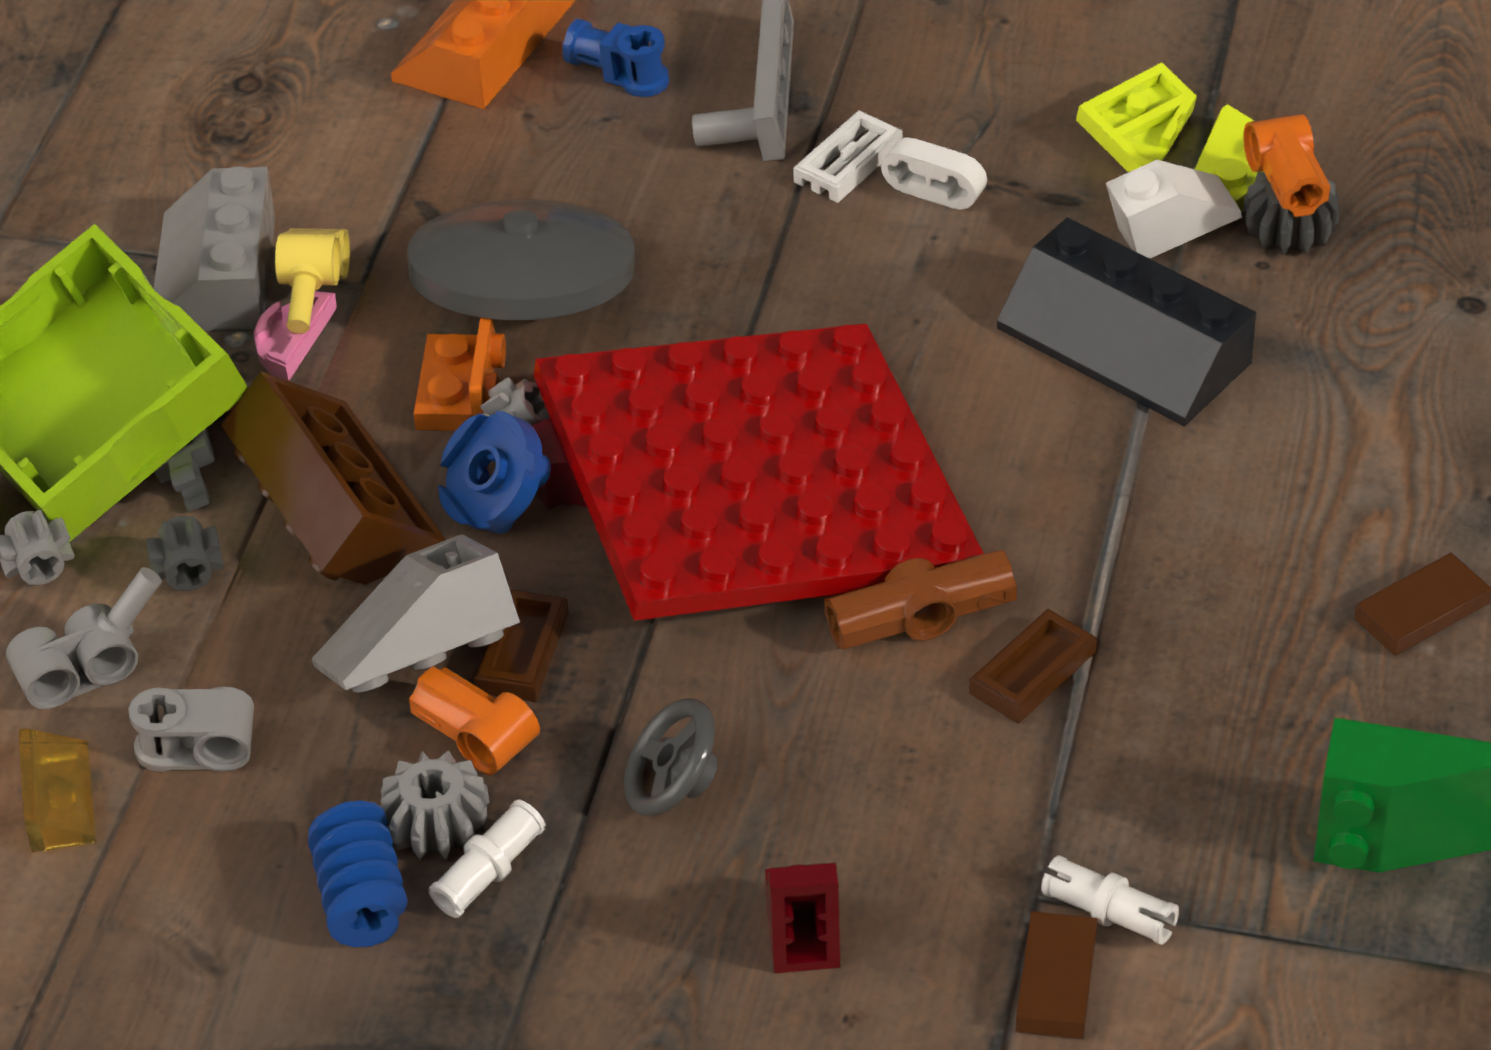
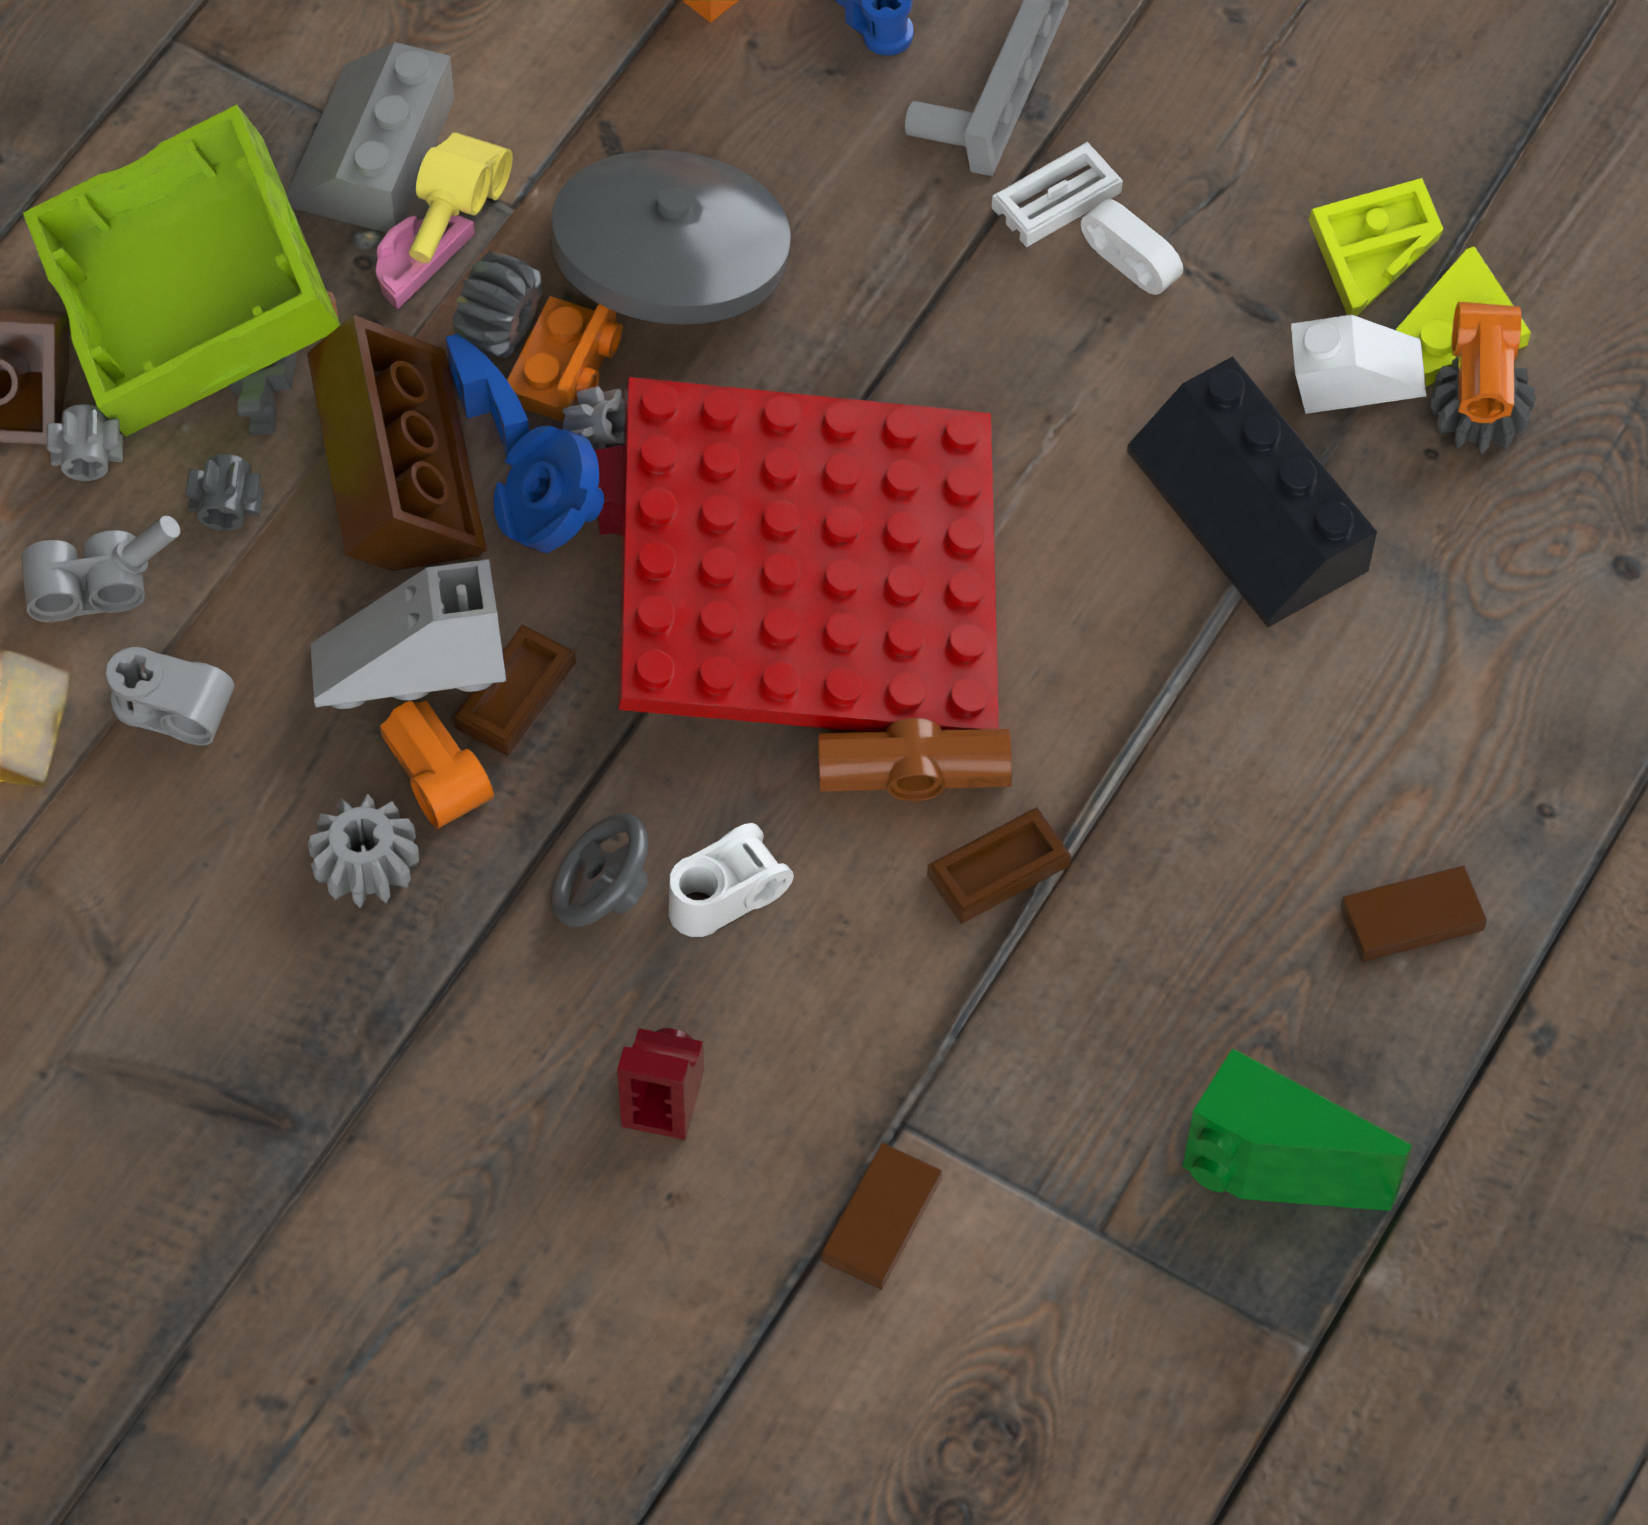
camera: 15 degrees right, 15 degrees up
(357, 873) = (264, 905): blue piece -> none
(385, 344) = (497, 304): none -> dark grey gear
(400, 415) = (485, 390): none -> blue slope
(487, 858) = (394, 923): white pin -> none
(788, 742) = (736, 876): none -> white piece
(1110, 899) = (962, 1153): white pin -> none

